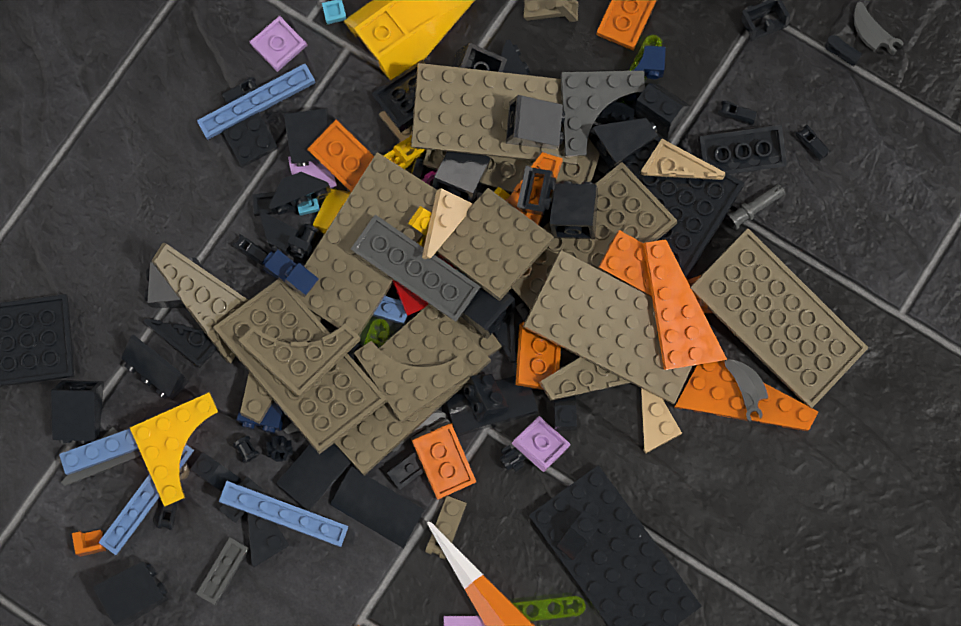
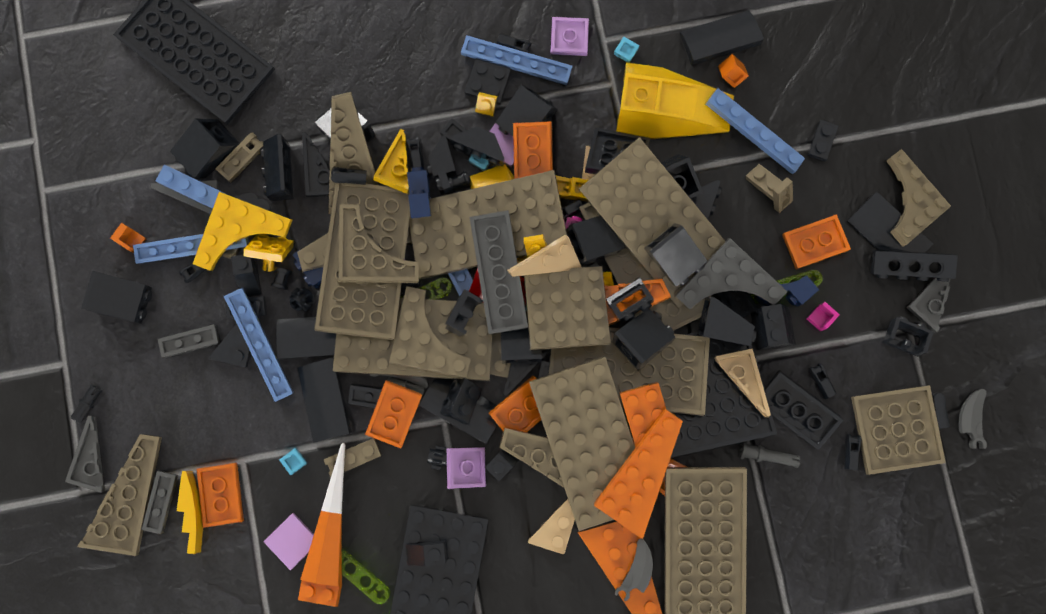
camera: 40 degrees right, 5 degrees up
(113, 390) = (240, 157): none -> dark tan plate
(214, 435) = (268, 249): none -> yellow plate
(221, 313) = (351, 176): none -> black bar
(247, 274) = (393, 167): none -> yellow wing
(267, 157) = (486, 104): none -> yellow plate
(402, 578) = (293, 461): none -> medium azure tile
(417, 328) = (462, 312): none -> black window
(688, 65) = (822, 316): none -> dark pink panel
(828, 93) = (898, 430): none -> dark tan plate

